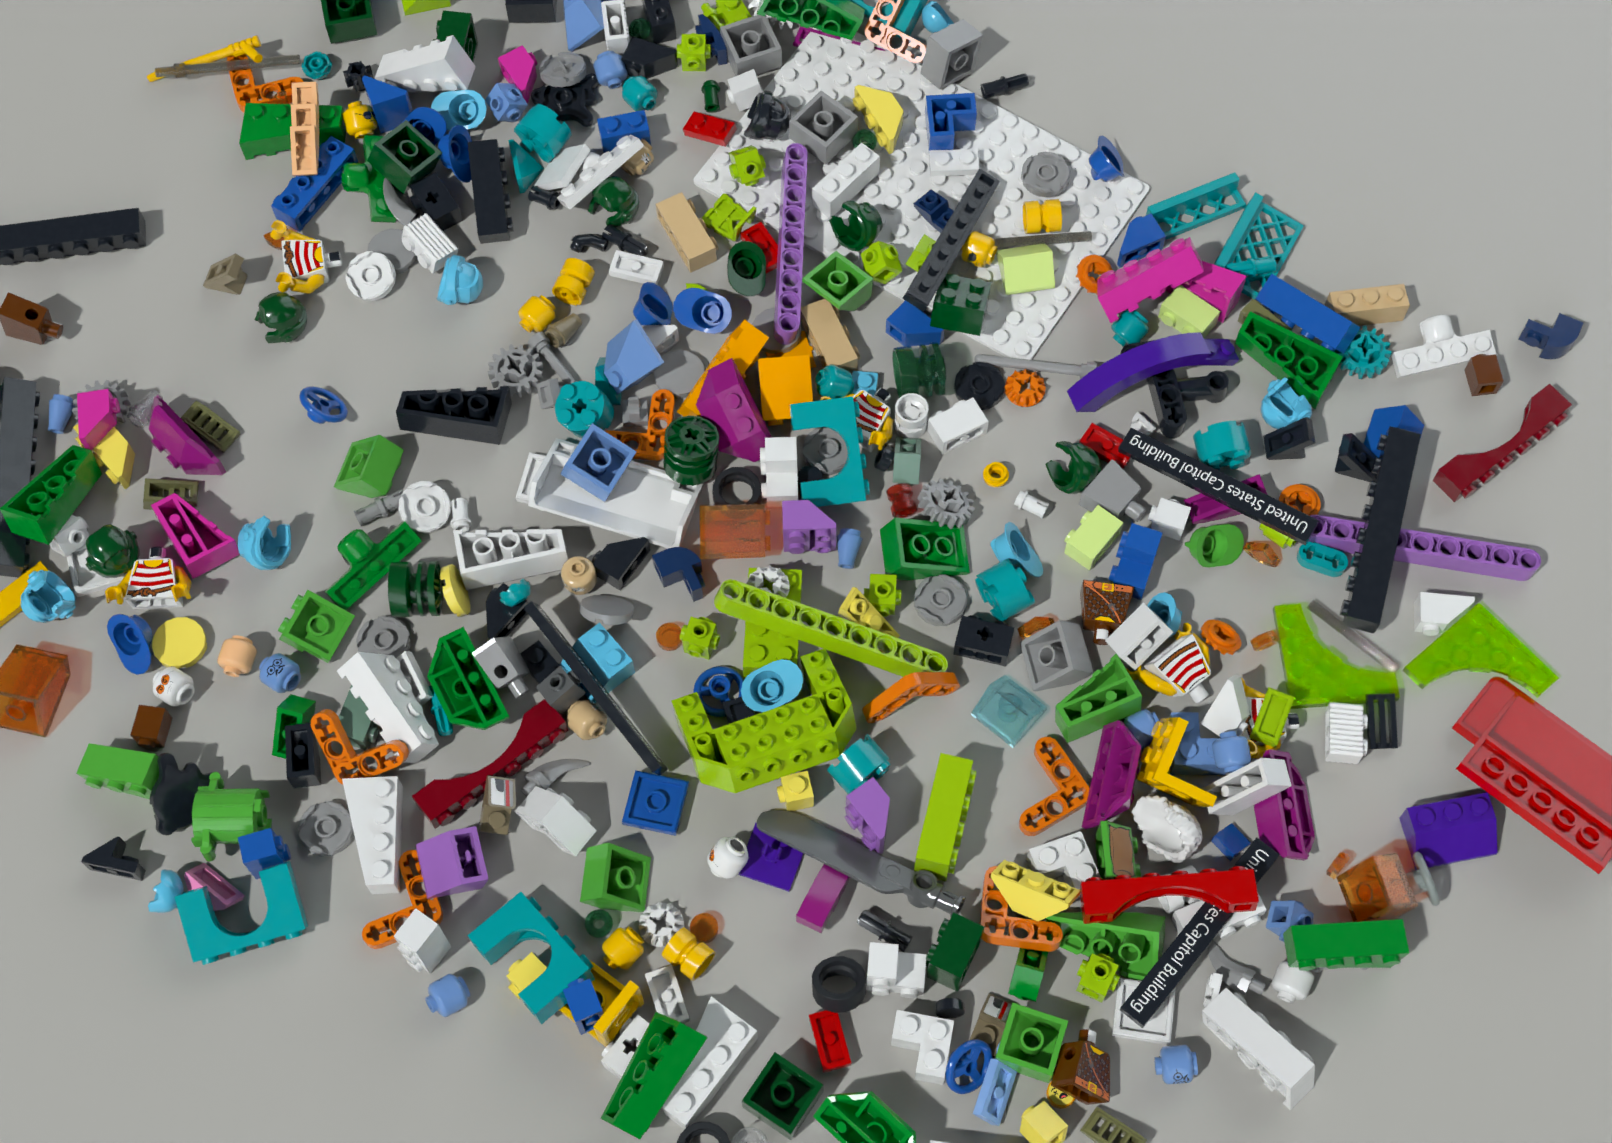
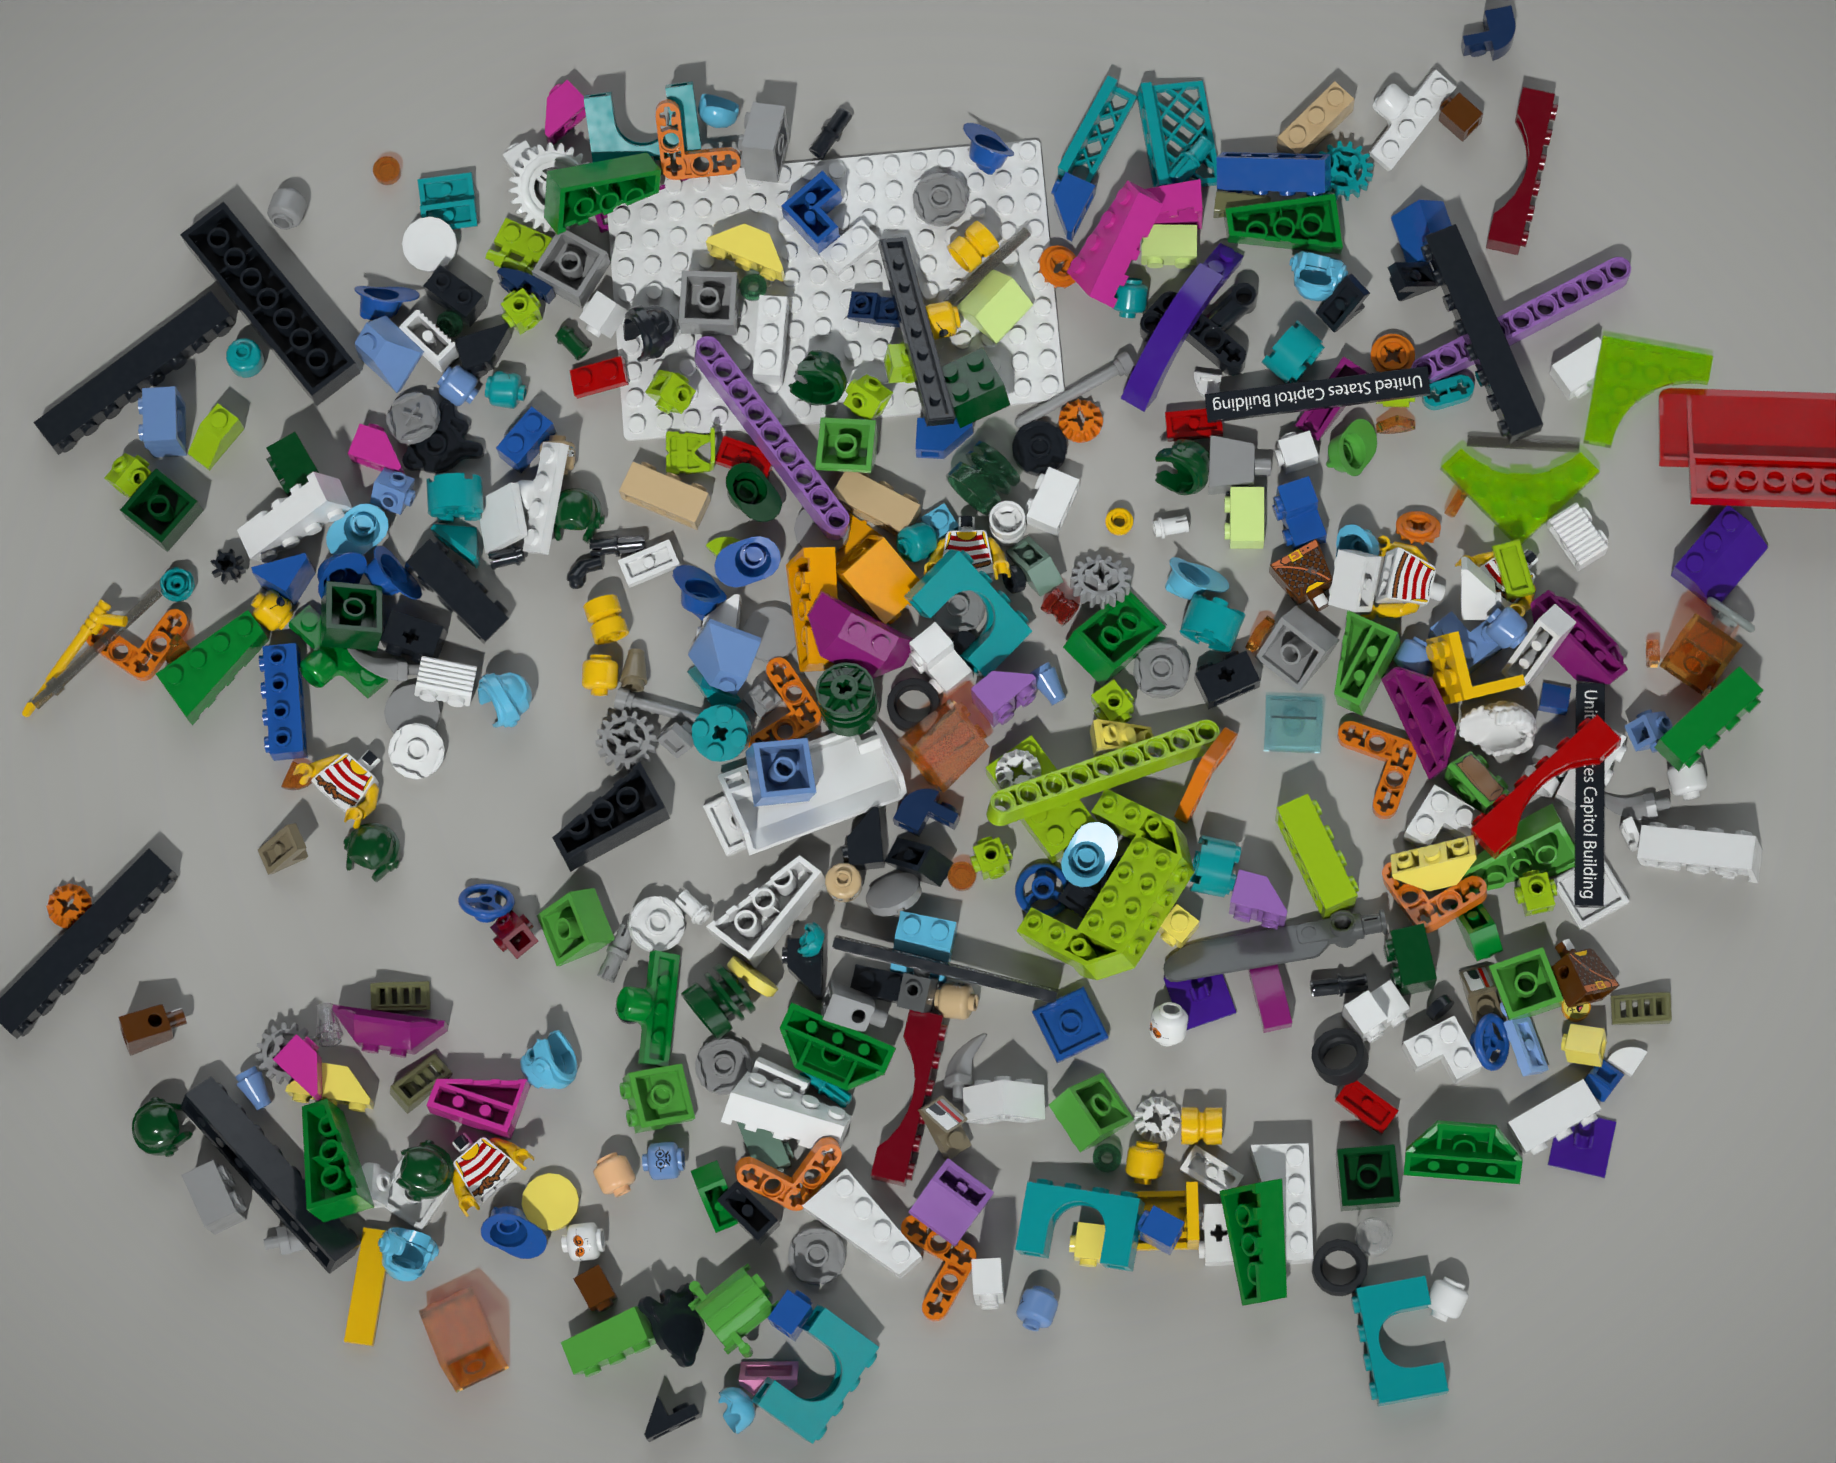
camera: 30 degrees left, 10 degrees up
(68, 206) = (65, 893): none -> orange gear
(304, 129) = (240, 659): light nougat slope -> none
(318, 446) = (514, 934): none -> dark red brick
(647, 603) = (919, 860): none -> black slope
(704, 927) = (1193, 1094): clear orange tile -> none
(1176, 1064) = (1648, 915): medium blue head -> none
(1392, 722) = (1614, 521): black tile -> none

